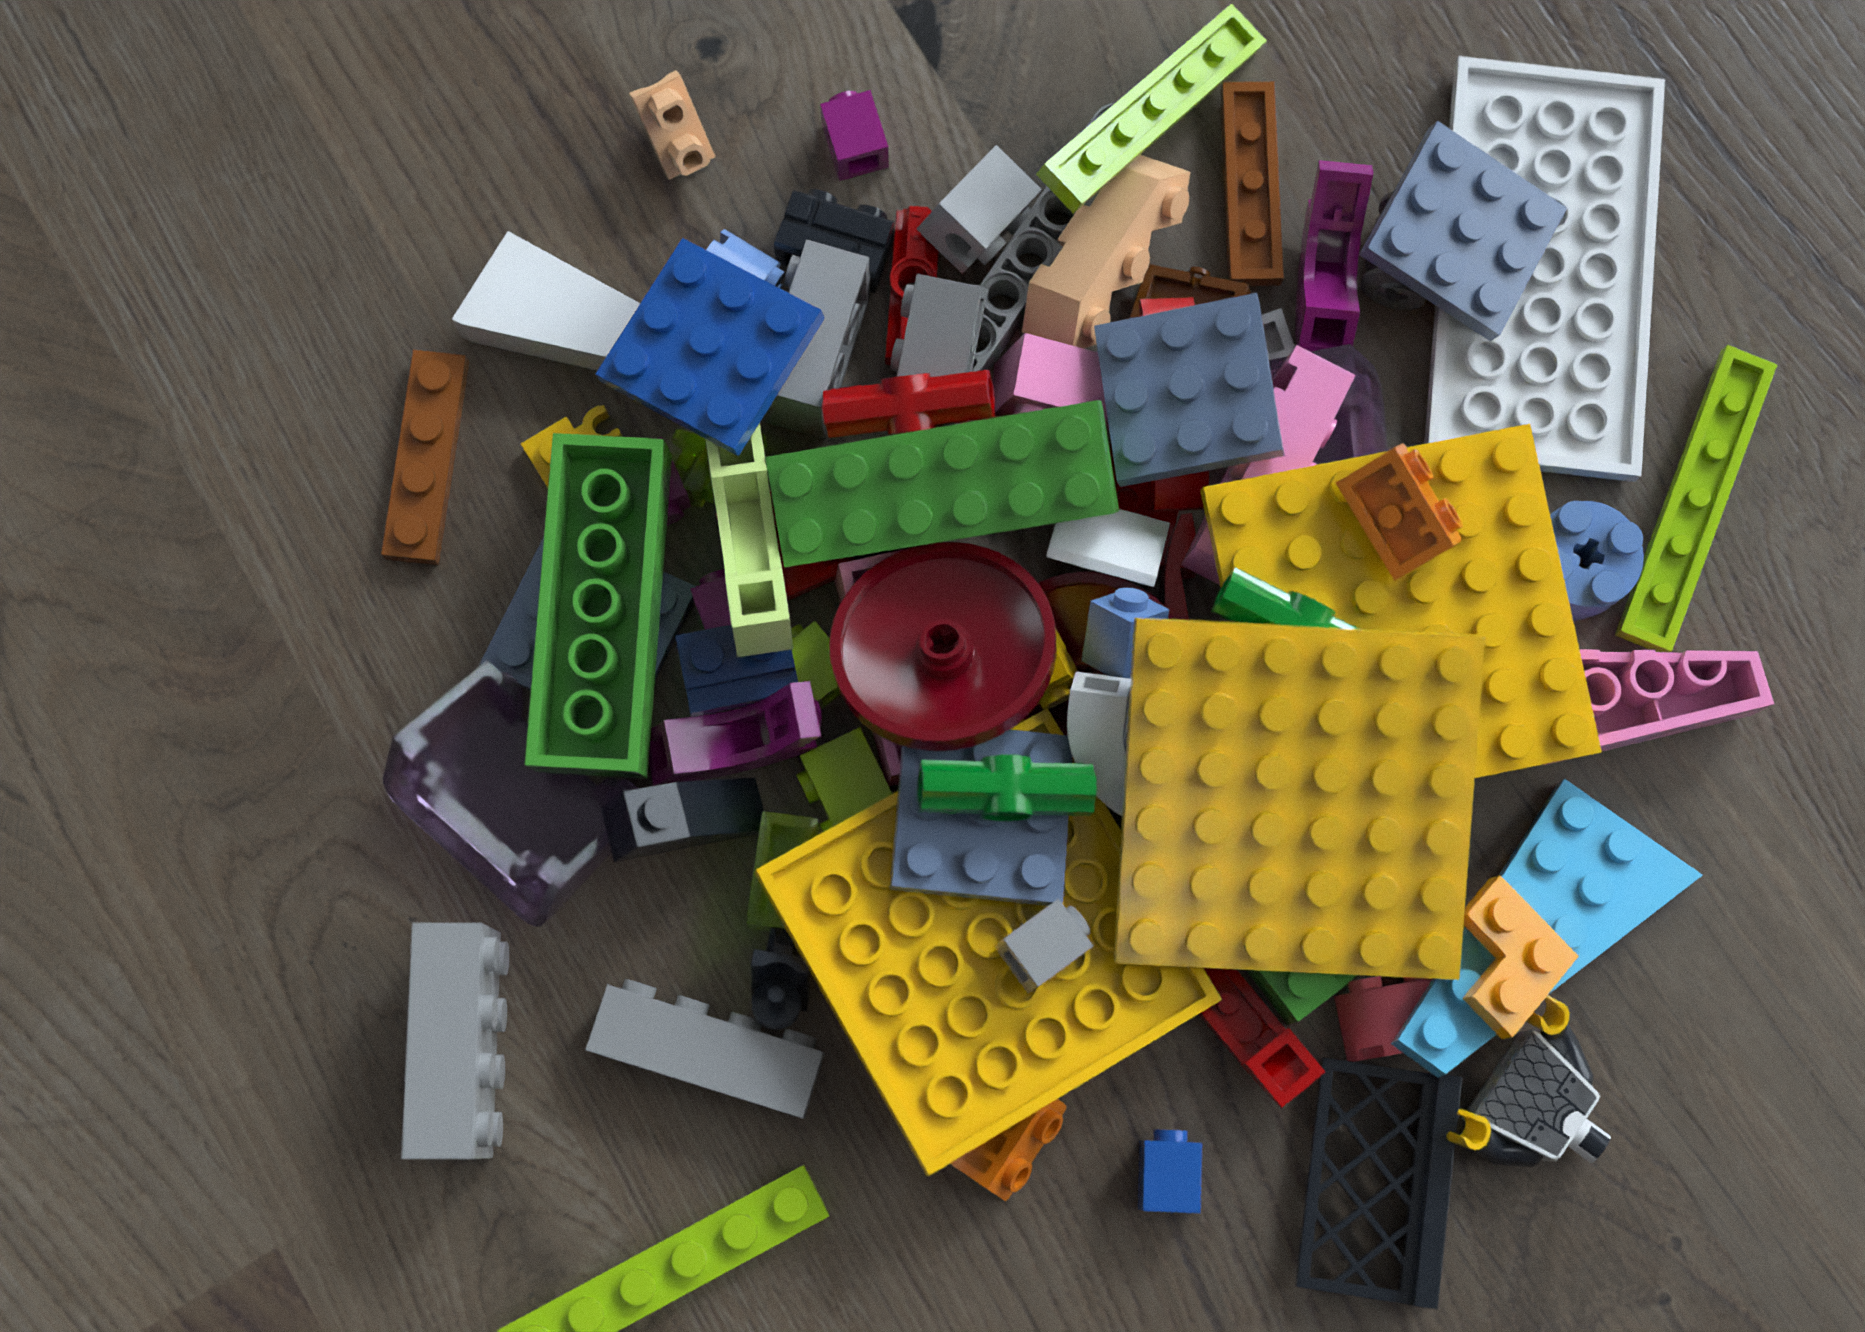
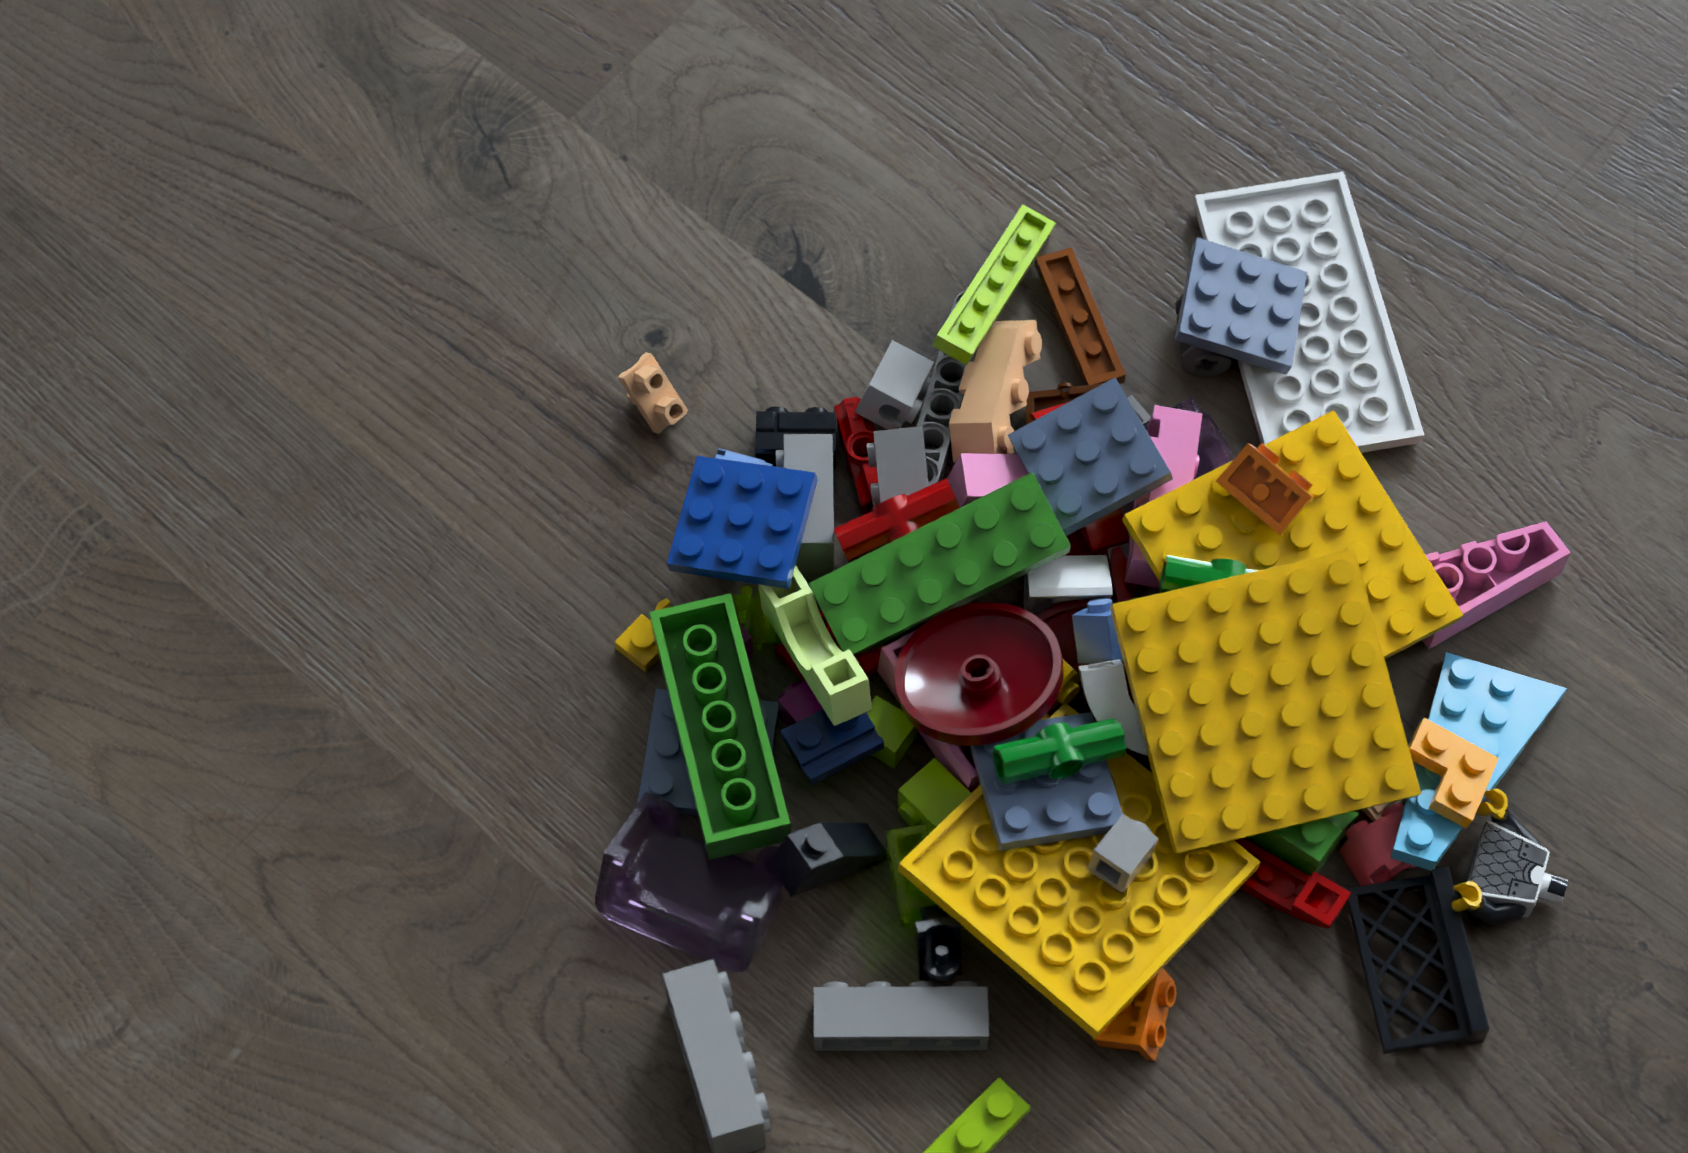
camera: 15 degrees left, 15 degrees down
(425, 457) = (546, 673): dark orange plate -> none
(542, 307) = (605, 544): white slope -> none
(736, 739) = (857, 788): magenta arch -> none
(854, 134) = (784, 364): magenta brick -> none
(1169, 1173) = (1266, 1001): blue brick -> none
(1329, 256) = (1152, 346): magenta arch -> none
(1609, 549) = (1415, 491): medium blue brick -> none
(1696, 500) = (1468, 439): lime plate -> none

